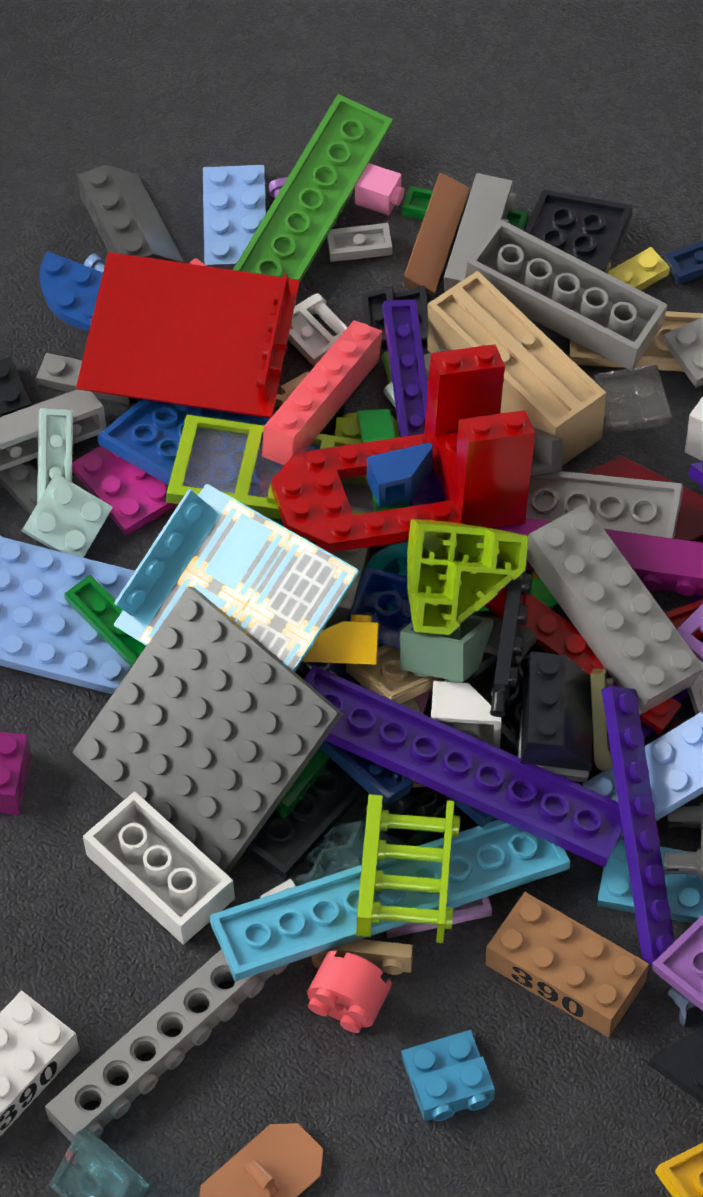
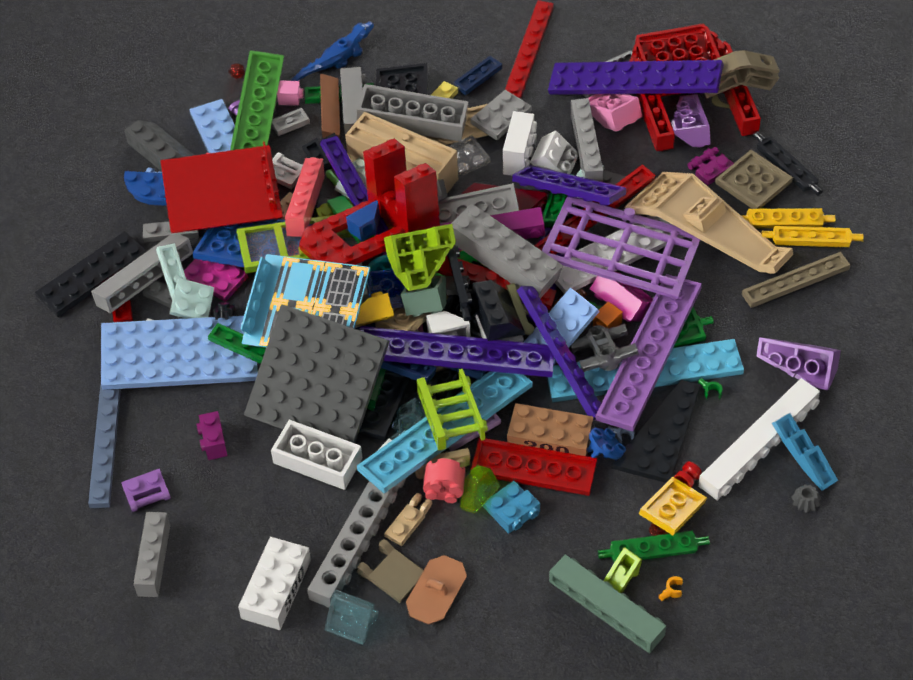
camera: 20 degrees left, 5 degrees down
(112, 553) = (223, 310): none -> black plate
(205, 1127) = (394, 575): none -> dark tan flag
(264, 1038) = (407, 520): none -> tan hinge
(308, 120) = (237, 70): none -> clear red plate
(401, 1025) = (478, 488): none -> clear neon green slope
(493, 138) = (338, 52): none -> blue animal
(516, 1016) = (536, 466): none -> red plate
(650, 1020) = (605, 442): none -> blue plate

